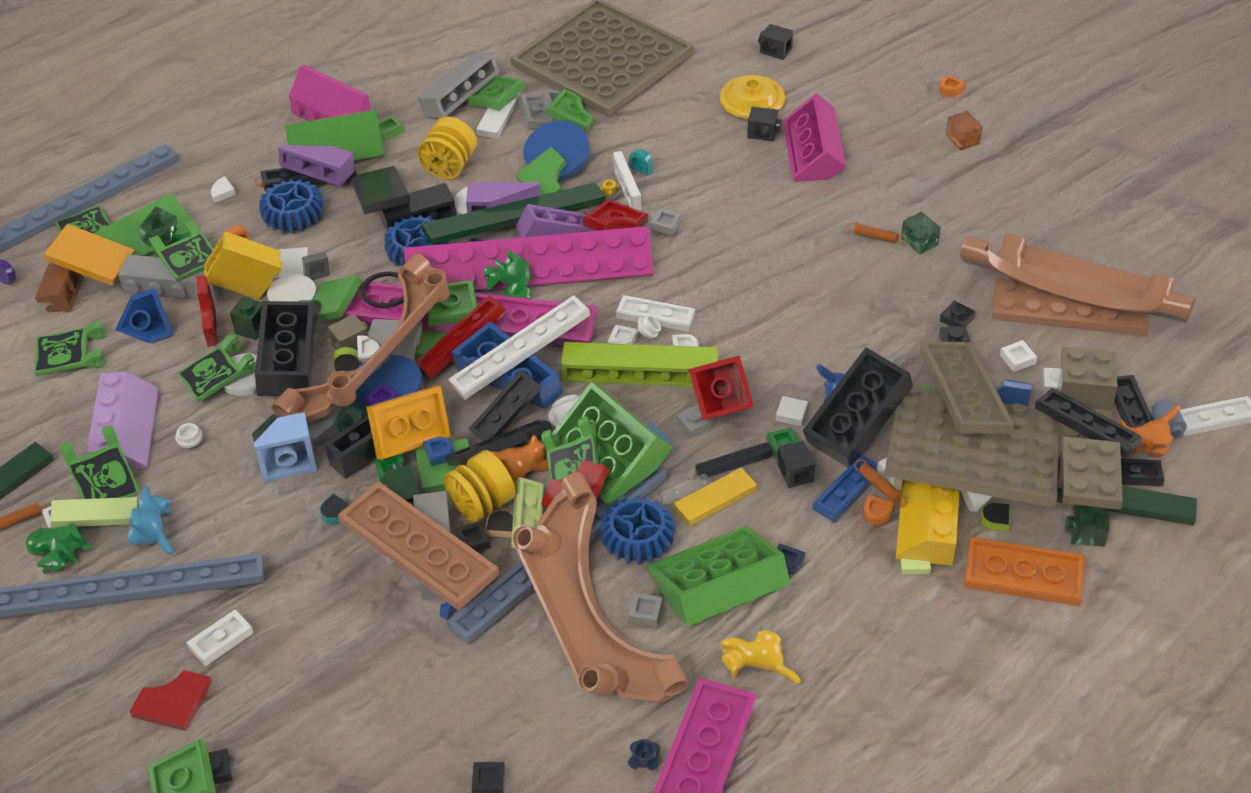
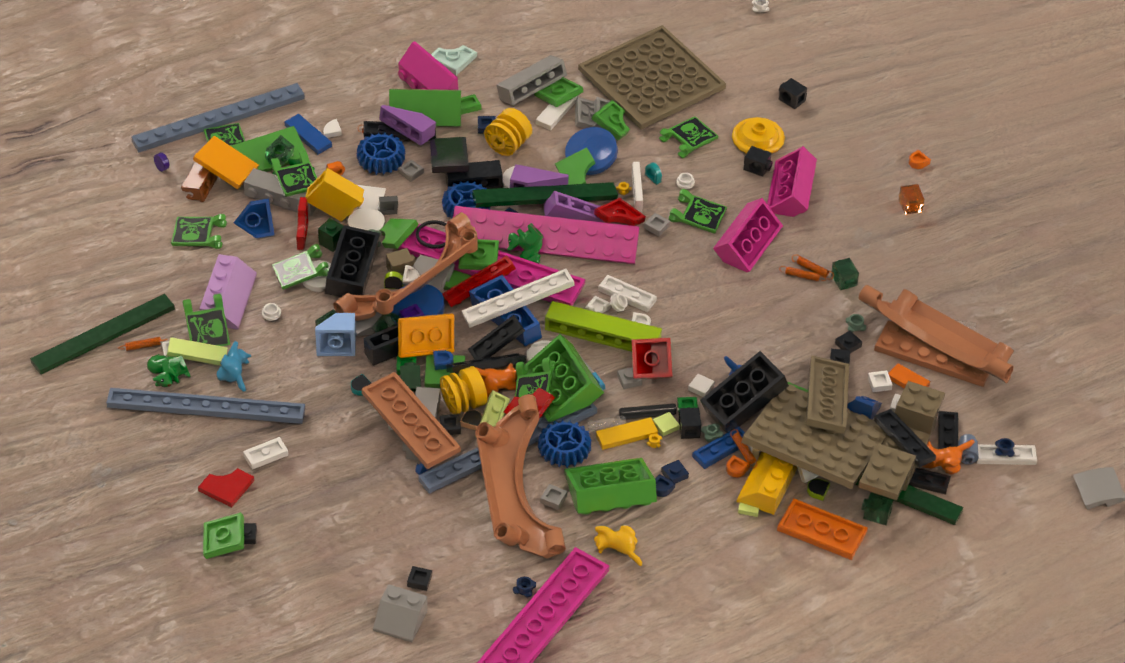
camera: 10 degrees right, 0 degrees up
(194, 201) = (309, 134): none -> blue tile
(335, 219) = (411, 170): none -> light grey tile
(361, 78) = (455, 59): none -> light aqua tile
(411, 145) = (483, 122): none -> dark blue plate
(670, 109) = (691, 134): none -> bright green flag
(683, 163) = (685, 181): none -> white plate
(711, 197) = (699, 212): none -> bright green flag
(755, 498) = (654, 440): none -> yellow piece
(764, 472) = (666, 424): none -> yellowish green tile
(784, 212) = (748, 236): none -> dark pink slope
(798, 535) = (675, 471): none -> dark blue plate
(829, 470) = (712, 432): none -> sand green plate
(867, 244) = (802, 273): none -> orange piece
(957, 289) = (855, 323): none -> sand green plate
(1048, 344) = (901, 375): none -> orange tile
(1215, 406) = (1004, 447): none -> dark blue plate

